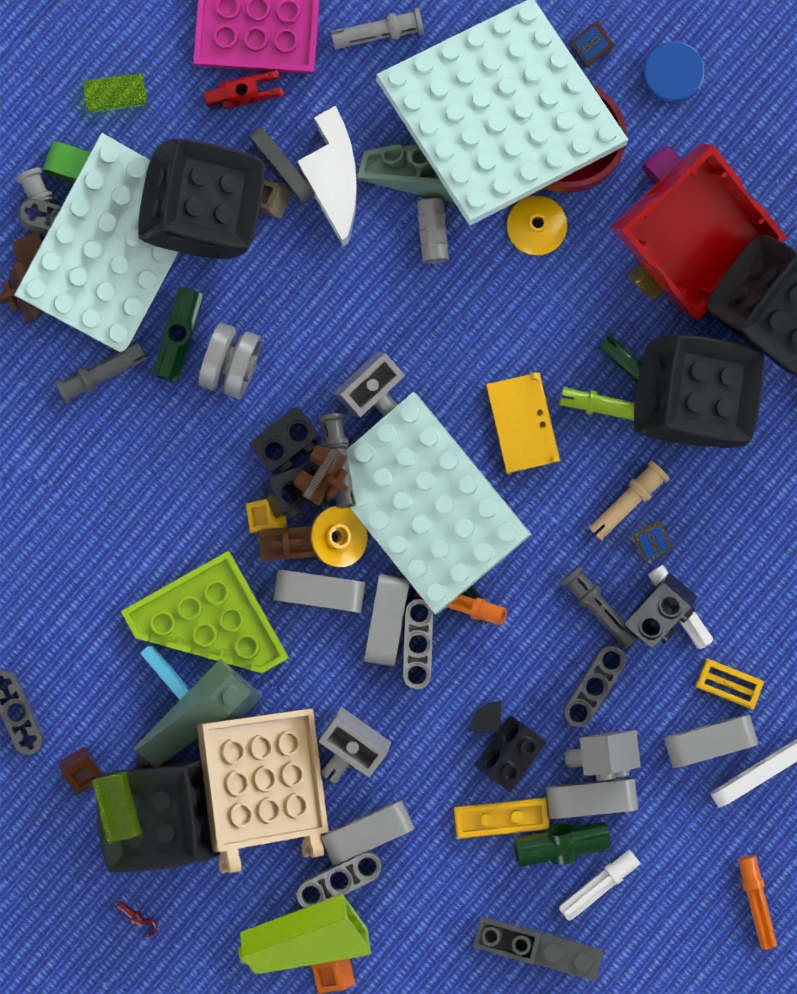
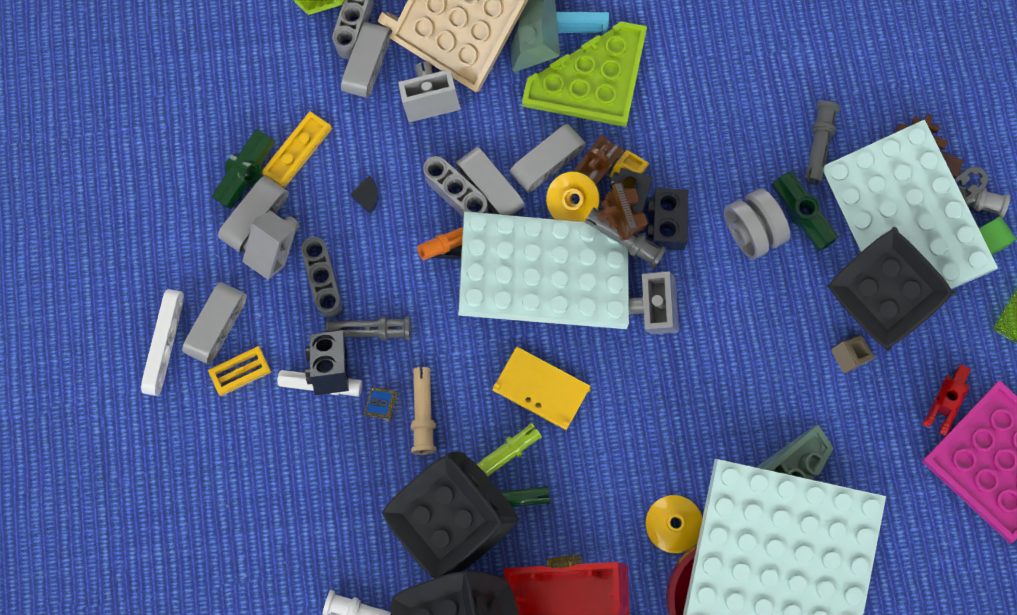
camera: 135 degrees right, 10 degrees down
(281, 165) = (871, 379): dark grey beam -> none
(333, 174) = (834, 408): white slope -> none
(391, 27) = (913, 546): light grey pin -> none
(433, 231) = (732, 443): light grey axle -> none
(510, 753) = (330, 185): black brick -> none
(539, 948) = (196, 102): dark grey slope -> none
(599, 885) = (194, 186): white axle -> none
(753, 885) = (98, 267): orange axle -> none

